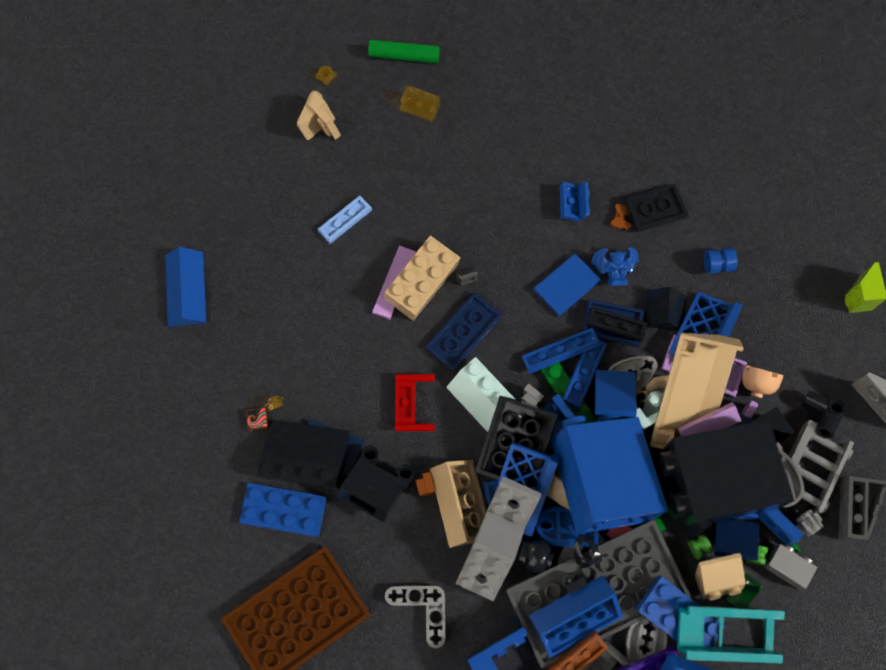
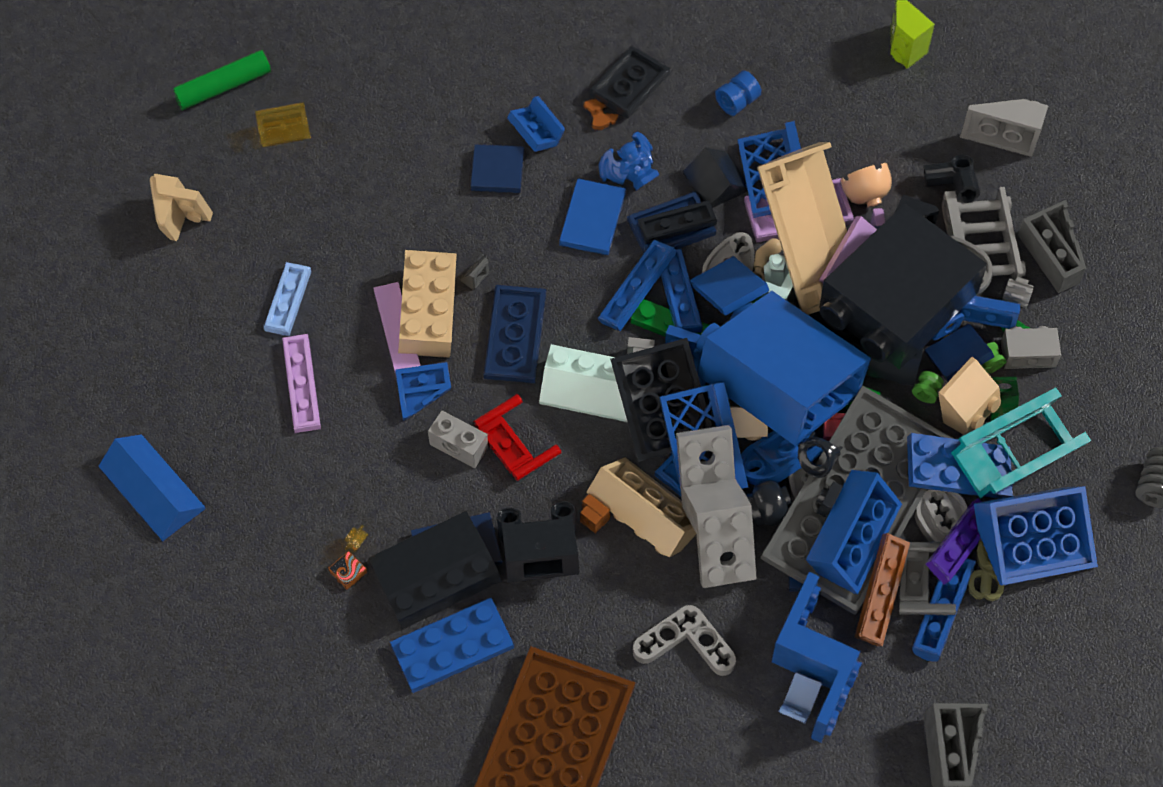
camera: 35 degrees left, 10 degrees down
(314, 279) = (301, 383): none -> lavender tile
(326, 70) = (145, 152): clear yellow plate -> none
(378, 380) = (458, 439): none -> light grey brick
(381, 330) = (421, 386): none -> blue wing
(530, 214) = (497, 168): none -> dark blue tile

